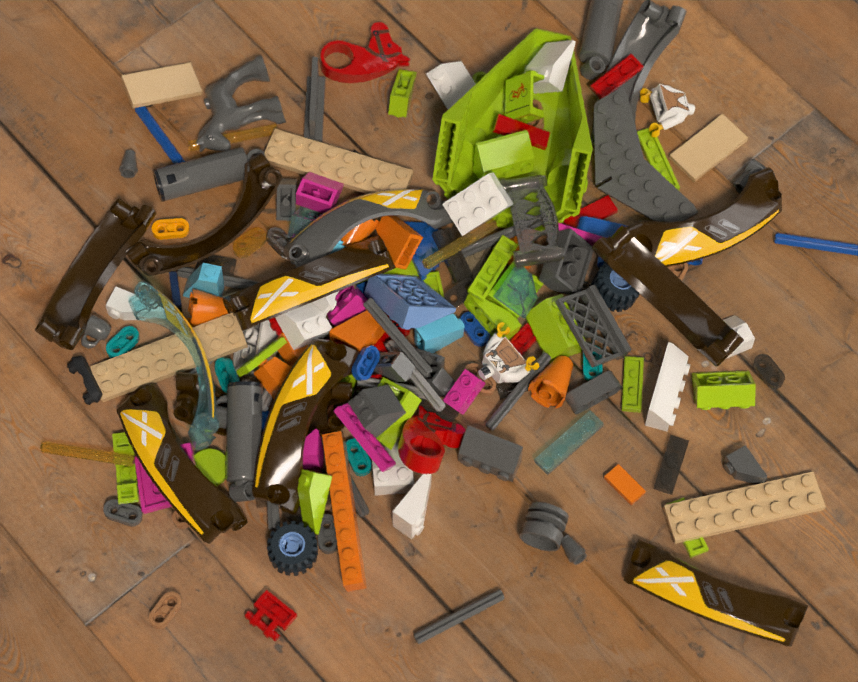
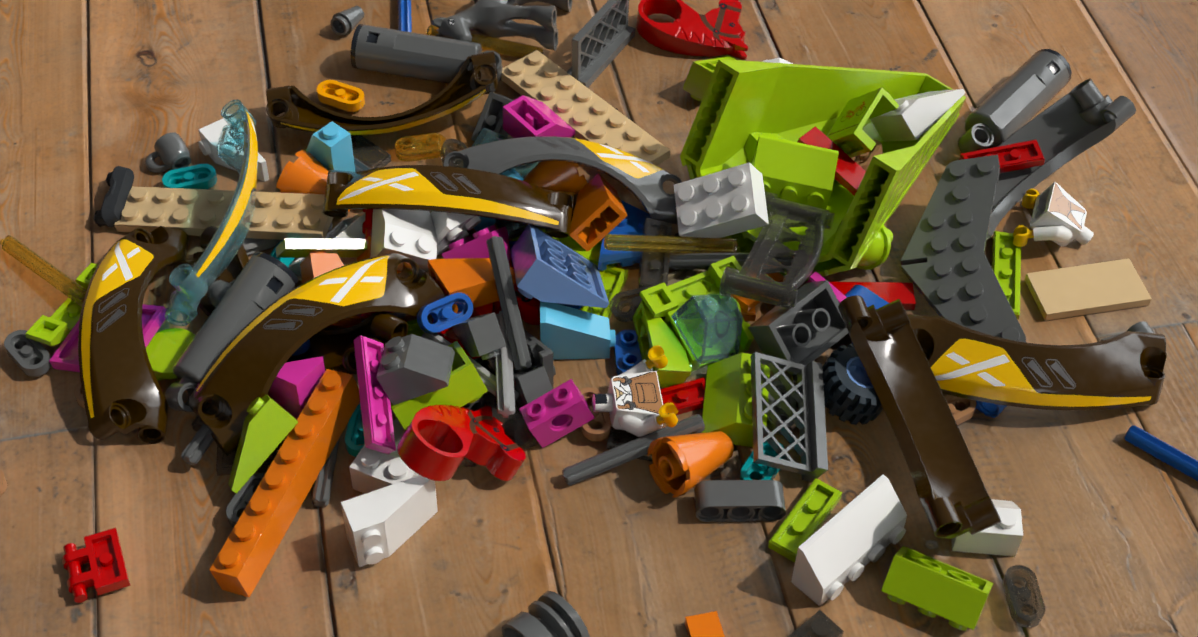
camera: 30 degrees right, 15 degrees down
(79, 289) = (202, 103): dark brown panel -> none
(175, 290) = (296, 143): dark blue tile -> none
(292, 548) = (189, 494): black wheel -> none
(490, 454) = (538, 506): dark grey slope -> none
(569, 442) = (662, 548): clear light blue plate -> none

